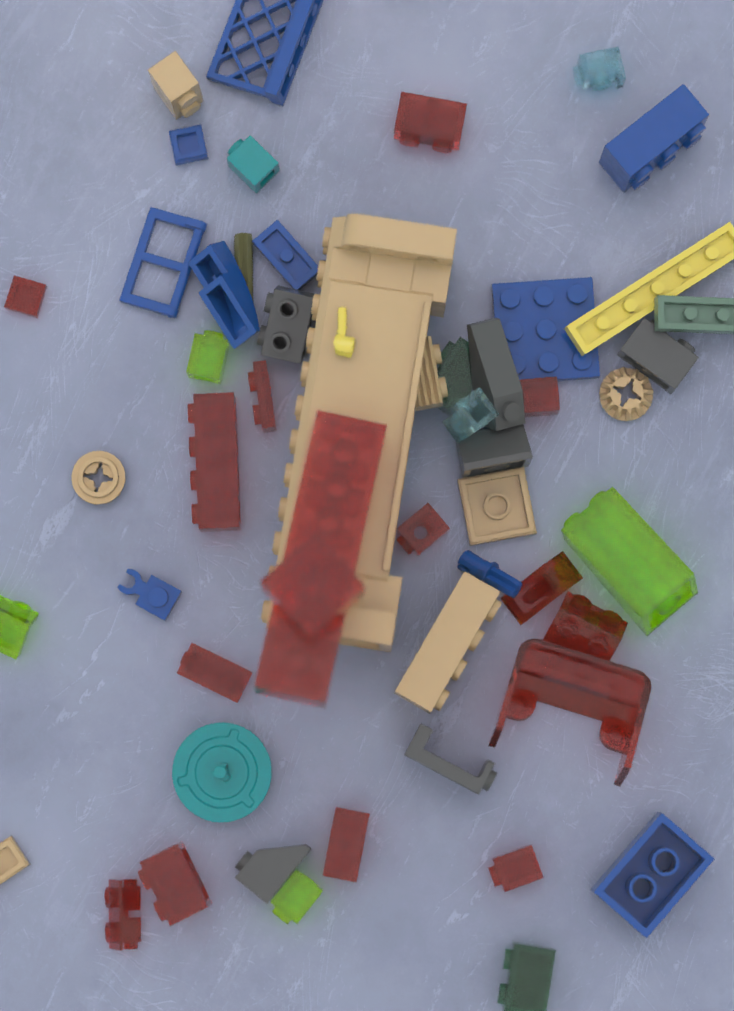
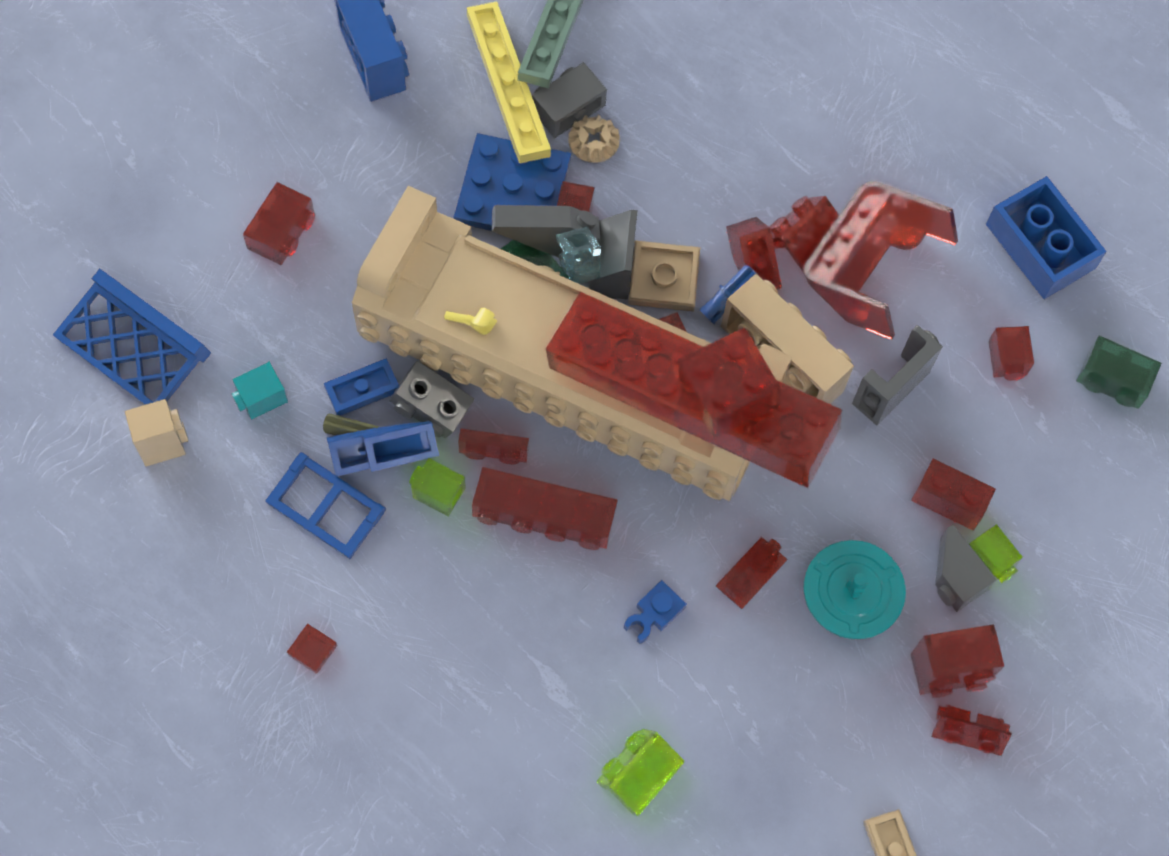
camera: 80 degrees left, 15 degrees down
(88, 465) = (516, 613): tan gear -> none
(188, 144) = (216, 448): blue tile -> none
(600, 69) = (287, 68): clear light blue brick -> none
(630, 560) = (750, 173): clear neon green slope -> none

